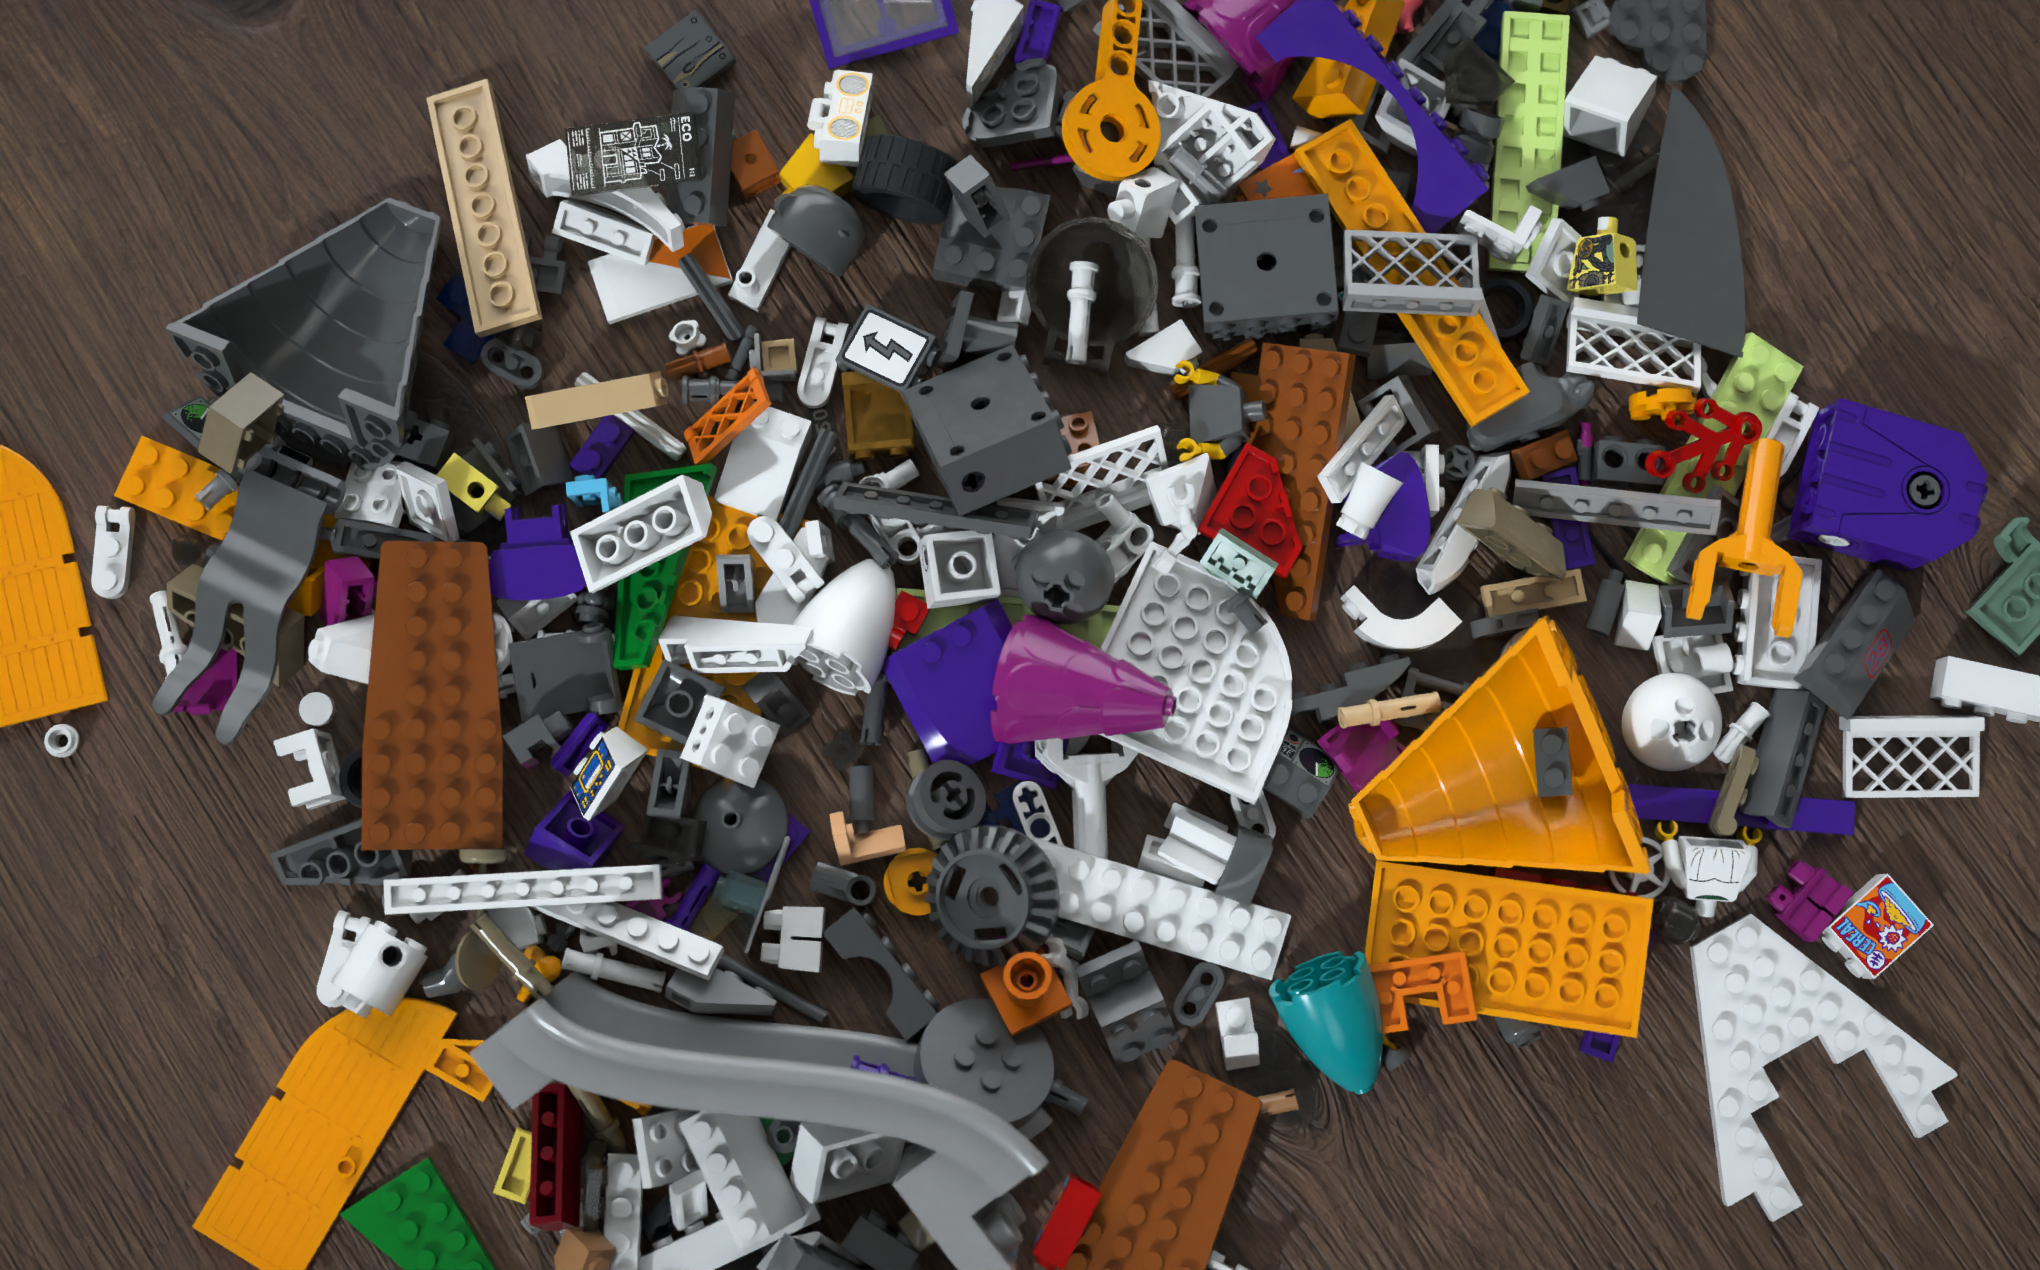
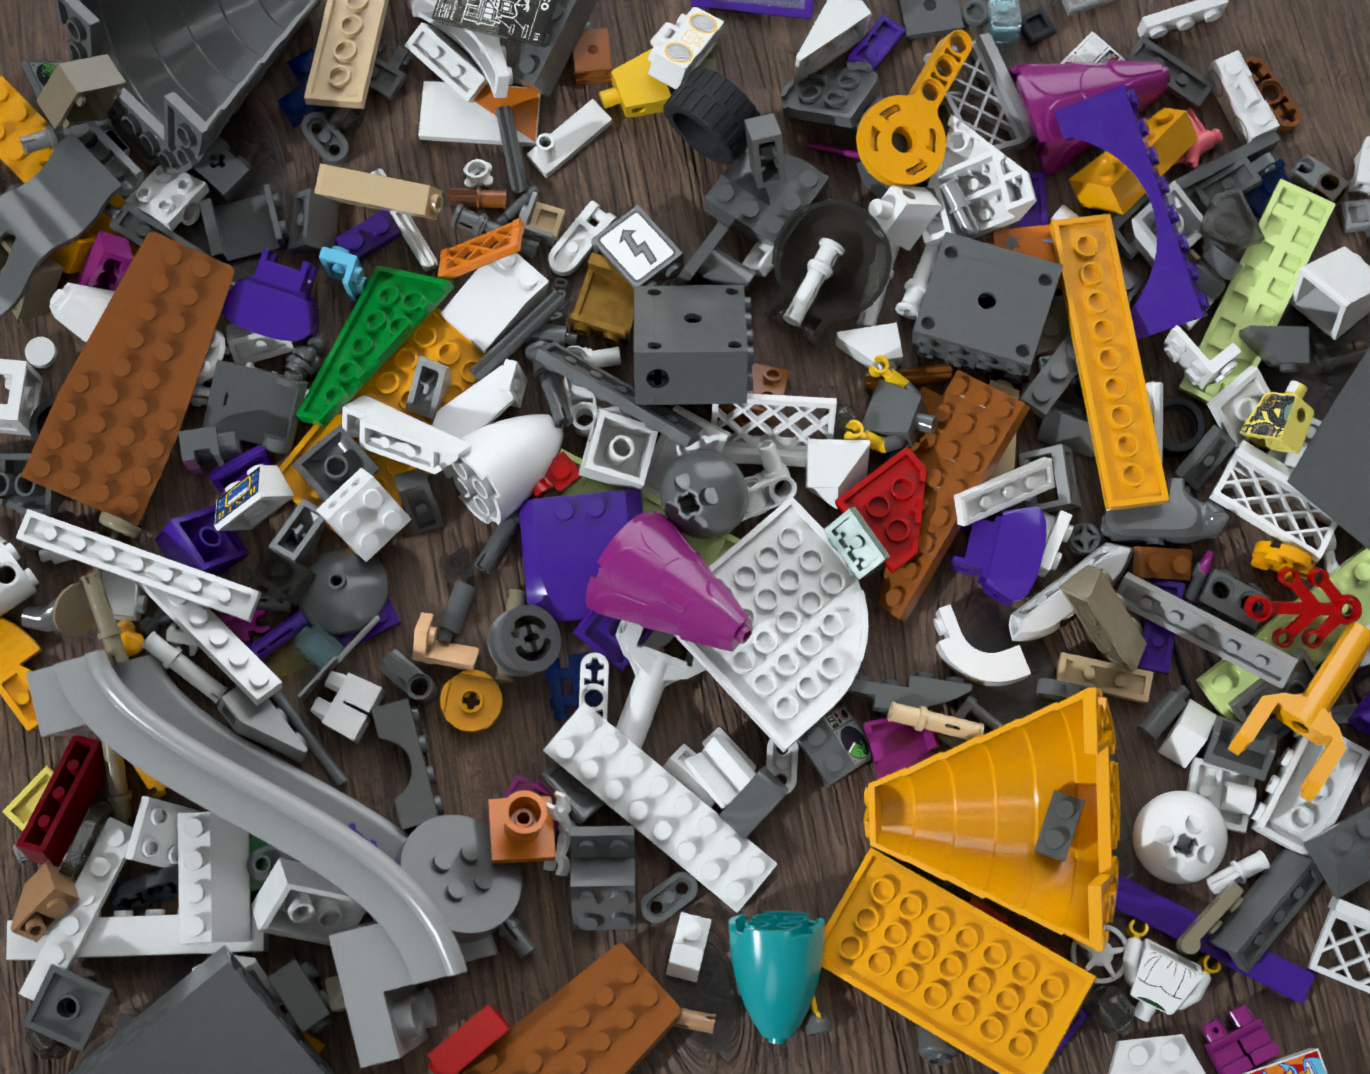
camera: 25 degrees right, 5 degrees down
(427, 501) = (204, 217): white tile -> none
(463, 478) = (241, 214): light yellow torso -> none
(642, 532) = (367, 310): white slope -> none
(688, 1200) = (159, 885): white tile -> none
(783, 557) = (476, 382): white plate -> none
(819, 227) = (624, 126): dark grey piece -> none
(1026, 915) = (547, 762): dark grey gear -> none
(1187, 528) = (826, 496): white piece -> none
(1246, 612) = (846, 587): dark grey pin -> none
(1367, 500) = (989, 534): white plant -> none
(1415, 297) = (1099, 377): light grey fence -> none
(1441, 973) = (886, 966): orange plate -> none

